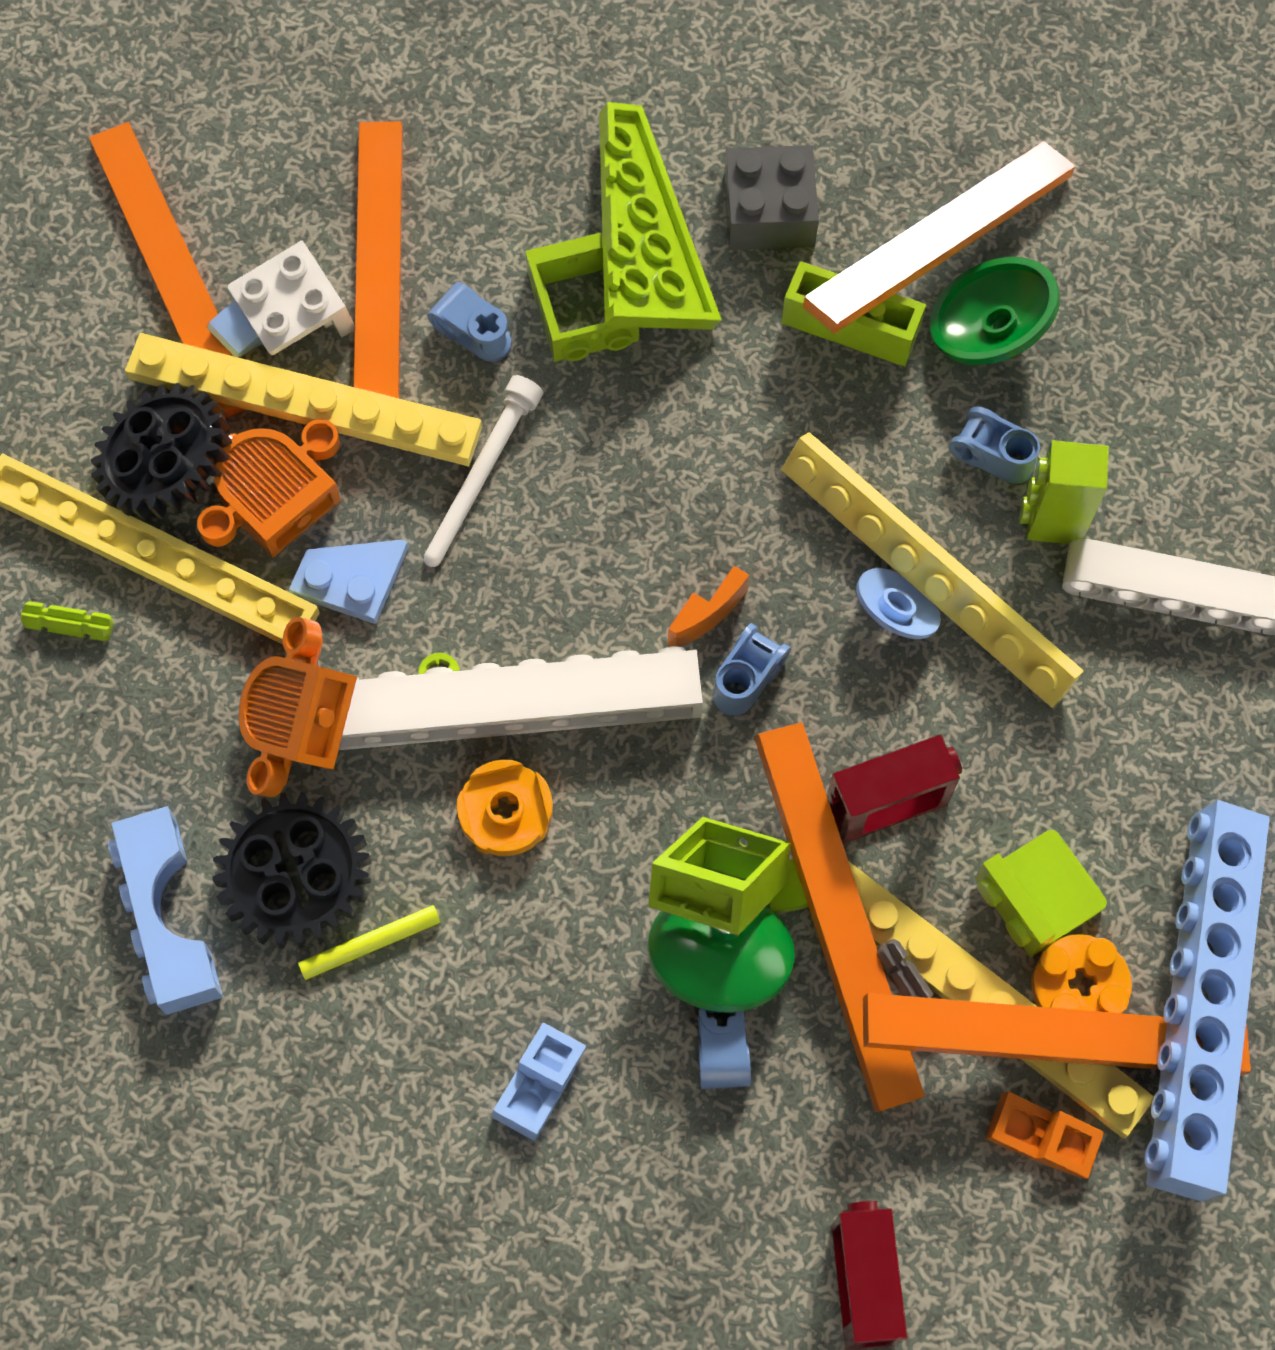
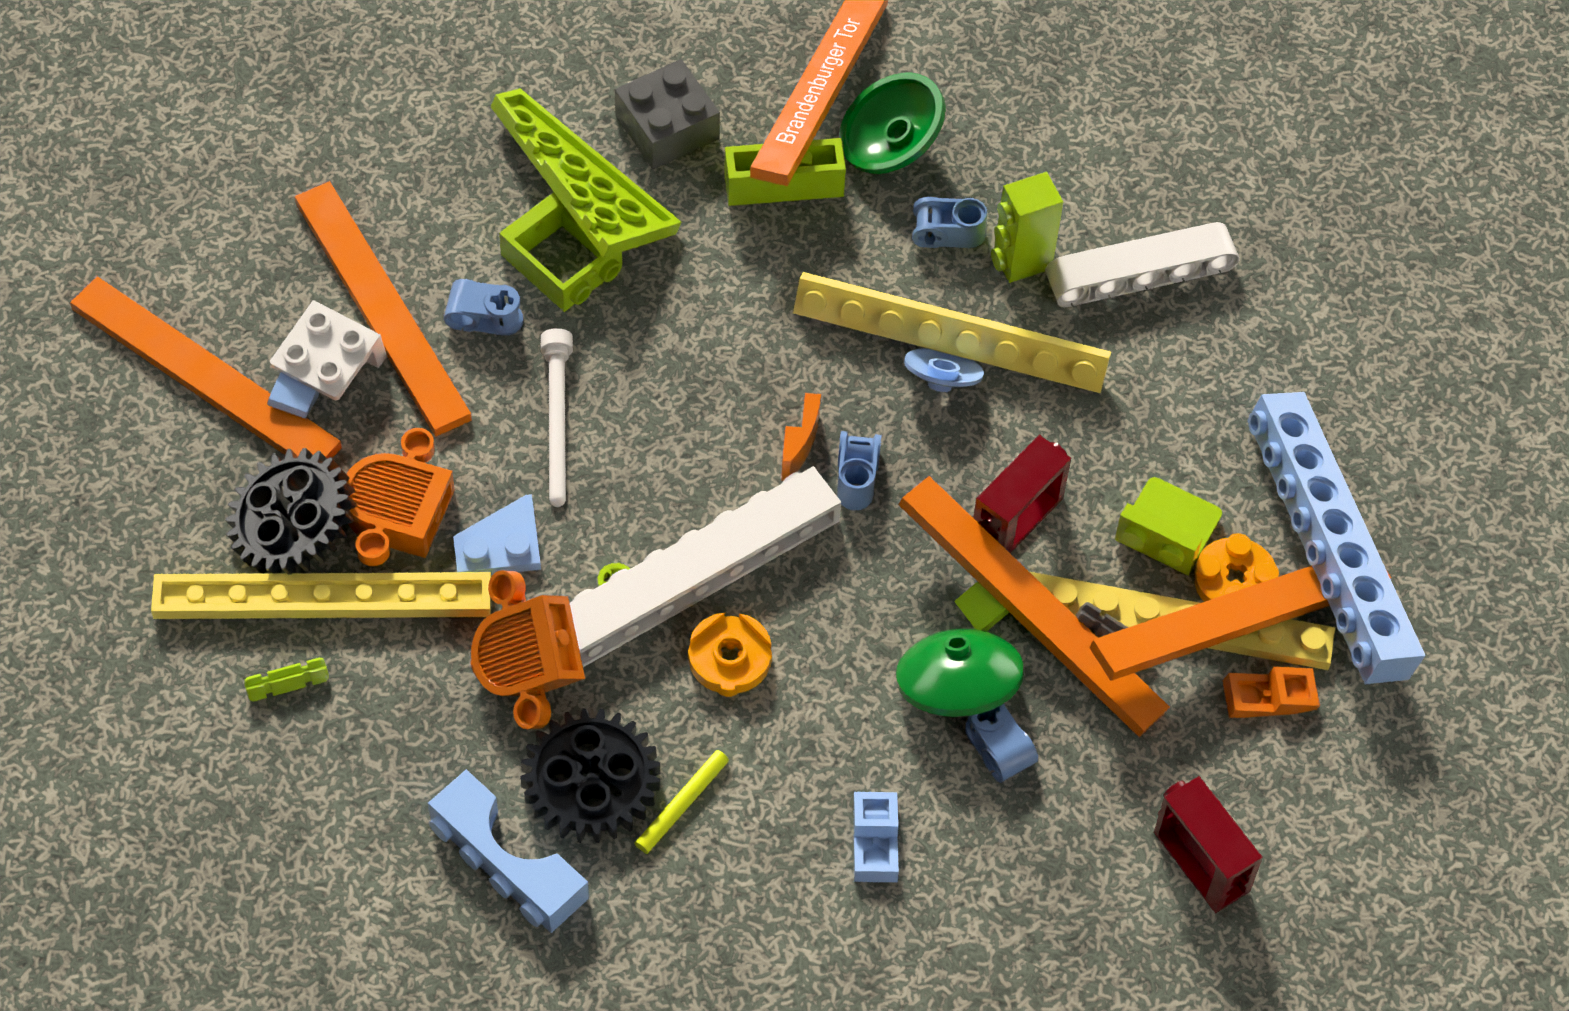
camera: 30 degrees left, 10 degrees down
(306, 399) = (383, 422): light yellow plate -> none
(730, 904) = (931, 620): lime window -> none

